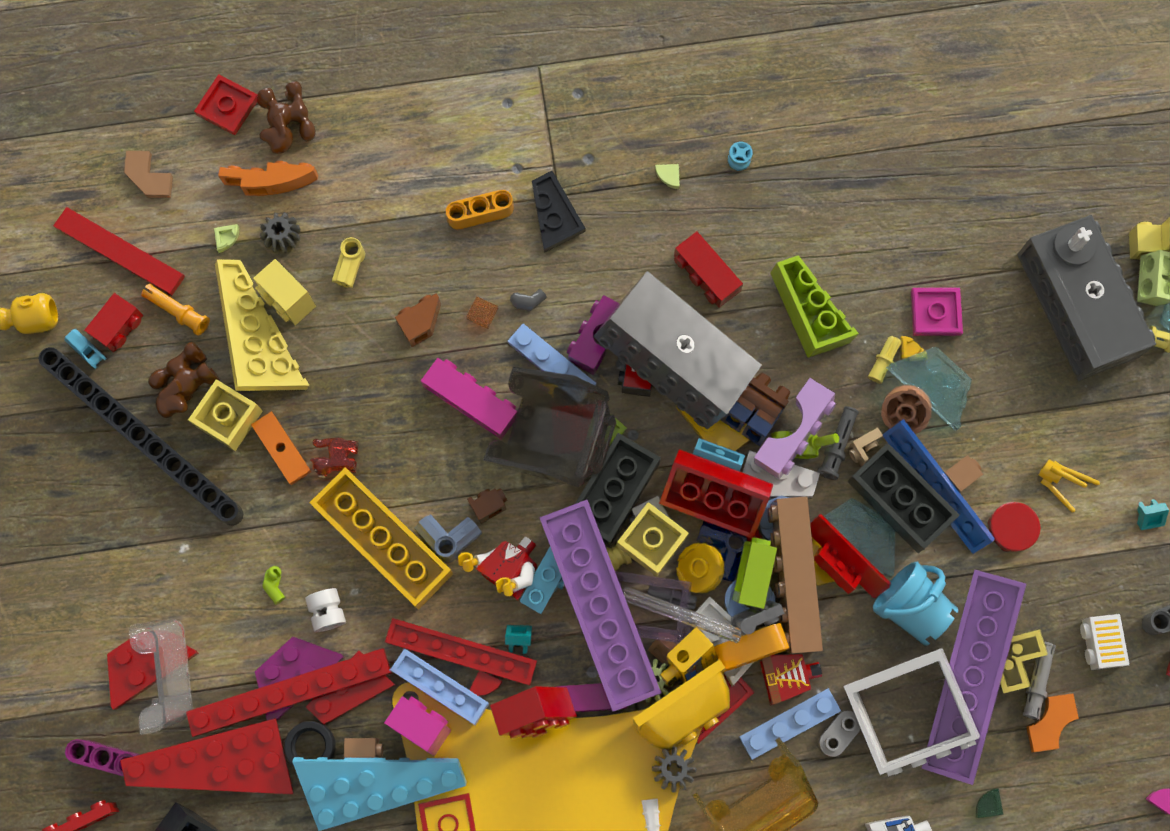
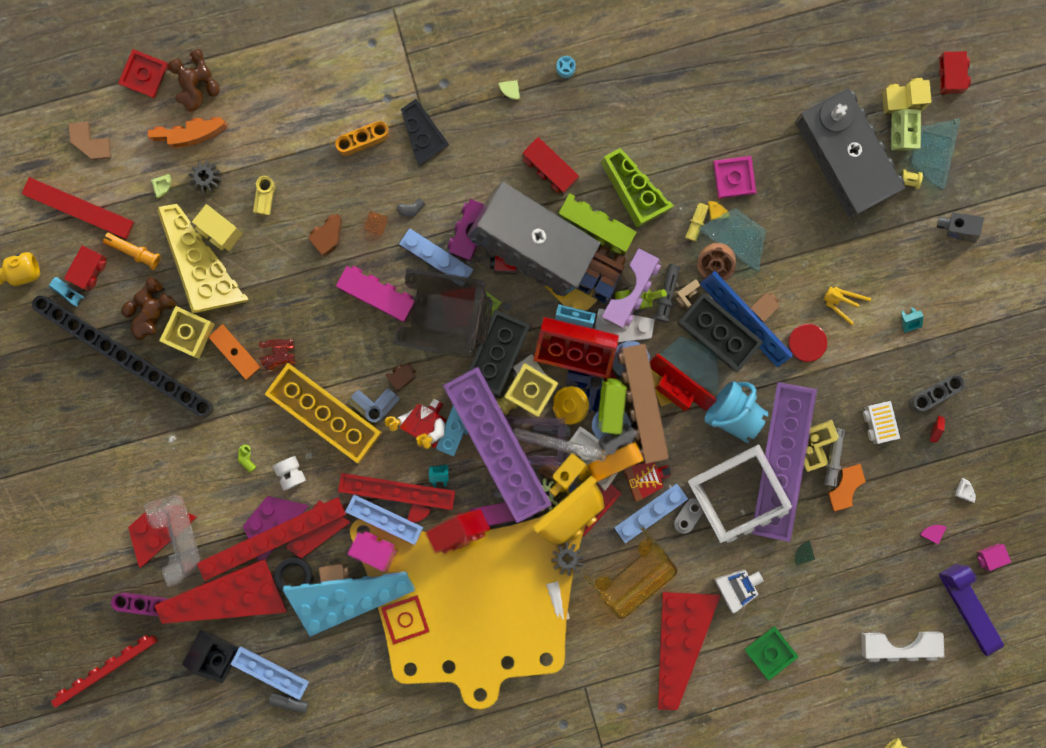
camera: 10 degrees left, 10 degrees up
(777, 359) = (597, 225): none -> lime wedge

